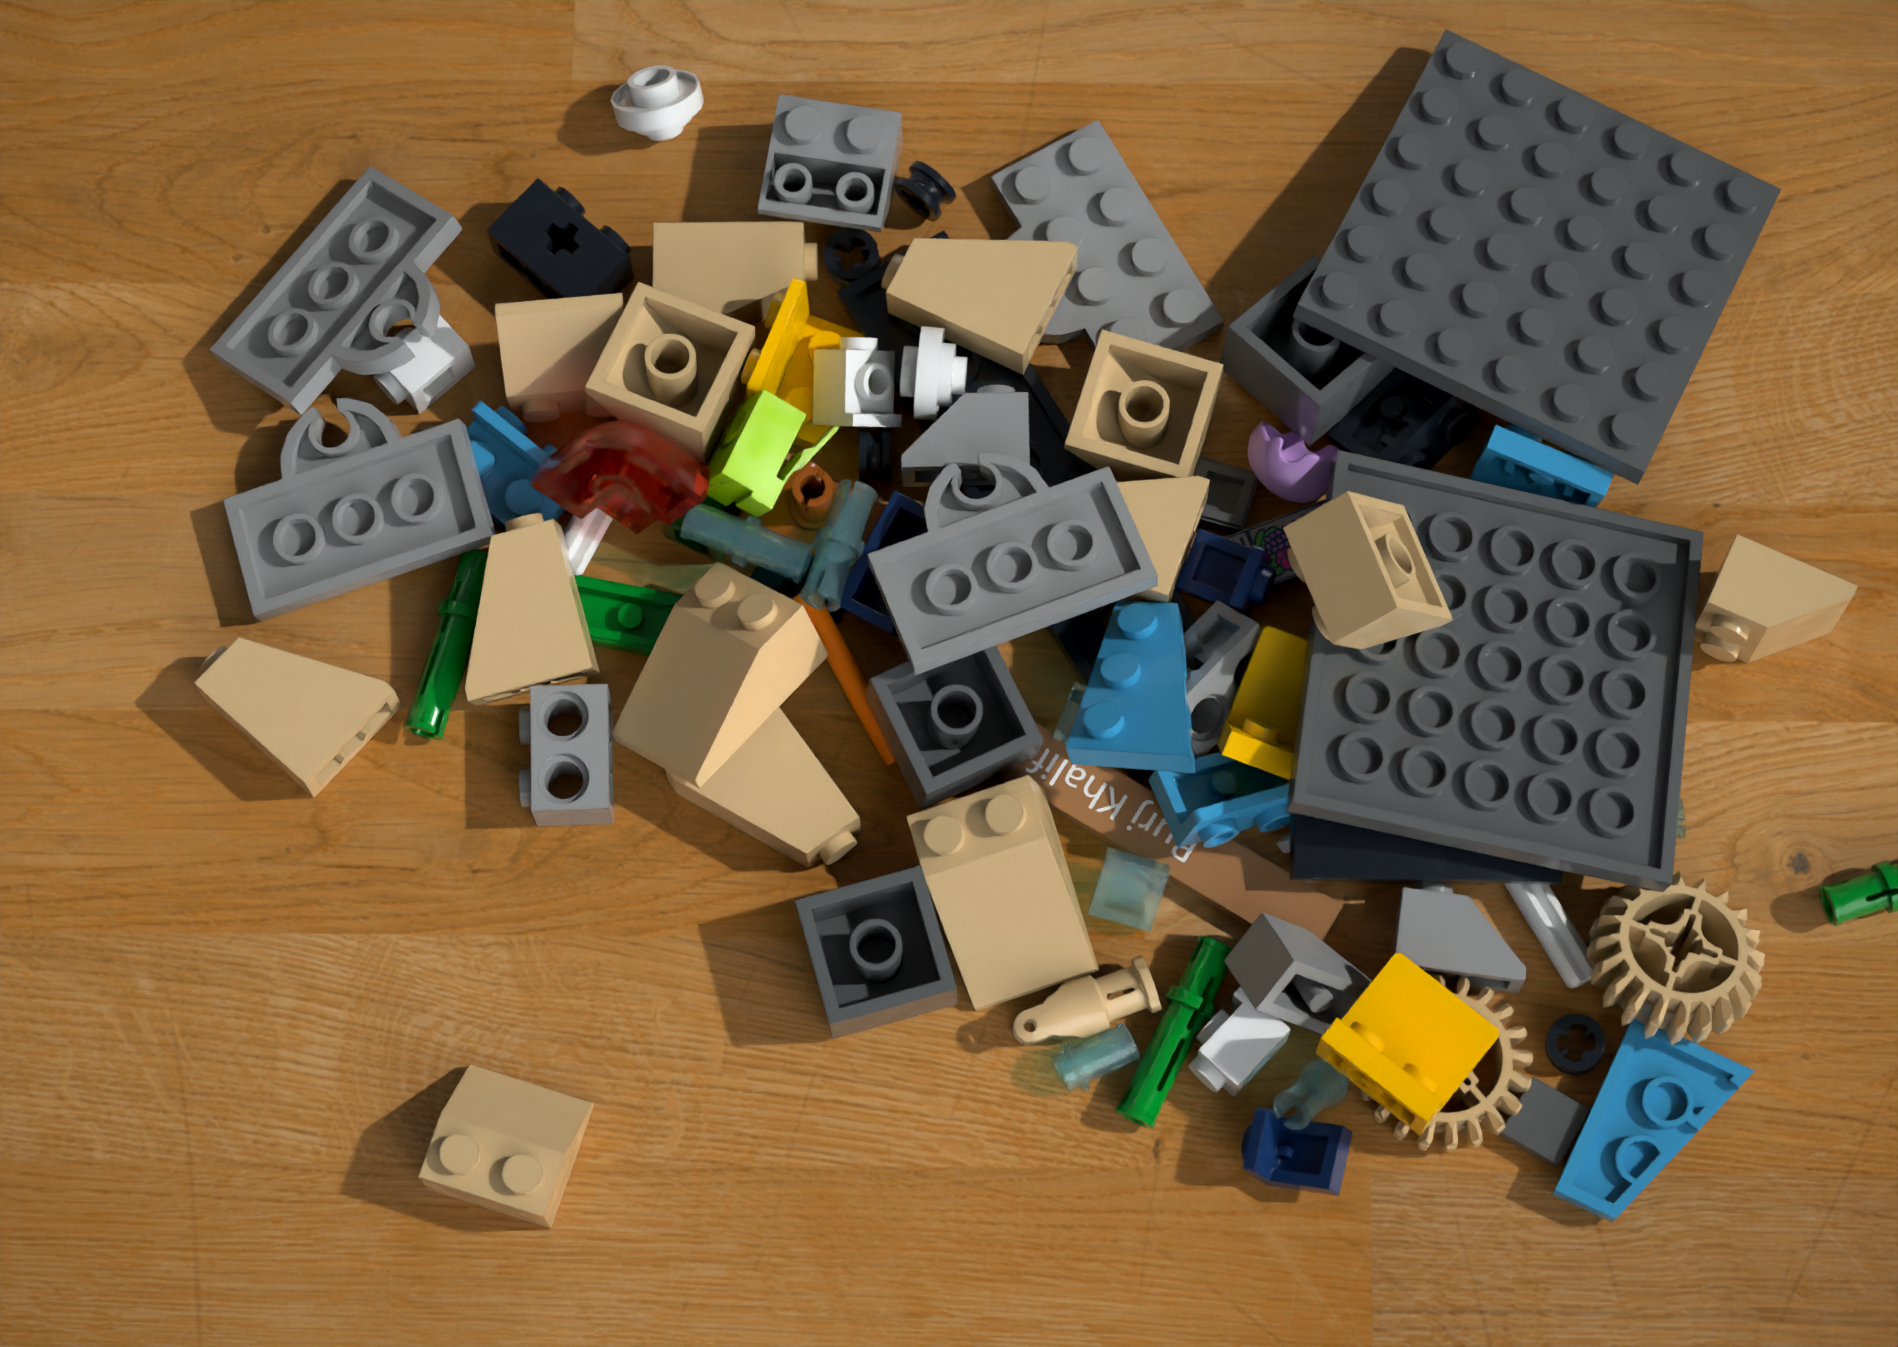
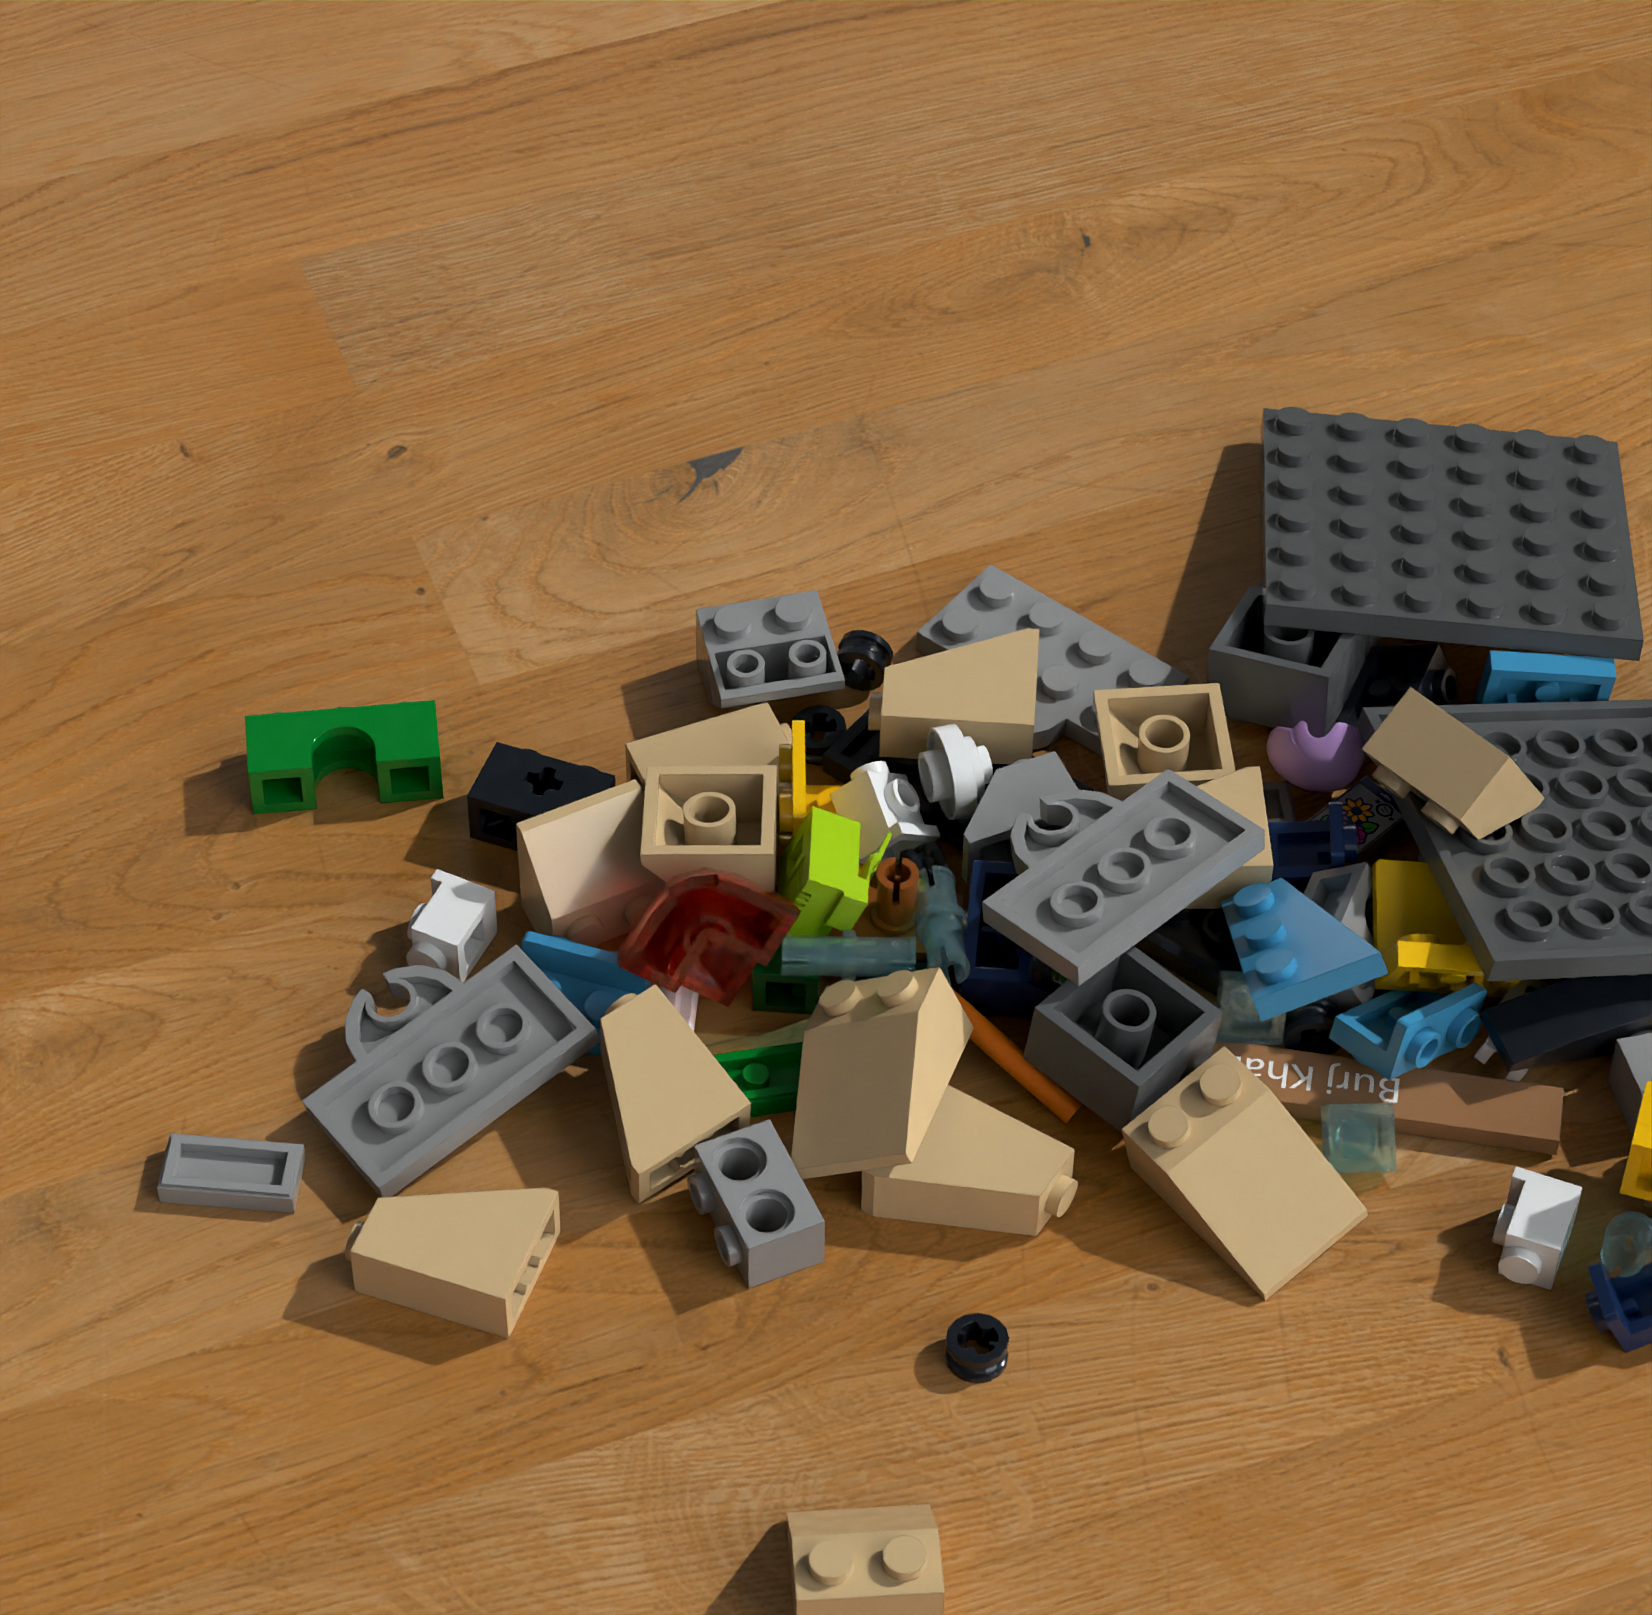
camera: 25 degrees left, 25 degrees down
(143, 543) = (231, 1173): none -> light grey tile
(343, 295) = (347, 897): light grey plate -> none
(359, 110) = (298, 749): none -> green arch
(449, 649) = (589, 1130): green pin -> none
(657, 102) = (577, 663): white plate -> none
(717, 955) = (964, 1360): none -> black bush
(877, 952) = (1150, 1261): dark grey brick -> none
(1088, 1004) = (1375, 1248): tan piece -> none
(1095, 1057) = (1393, 1302): clear light blue pin -> none
(1186, 1010) = (1469, 1219): green pin -> none
(1294, 974) = (1561, 1145): light grey slope -> none

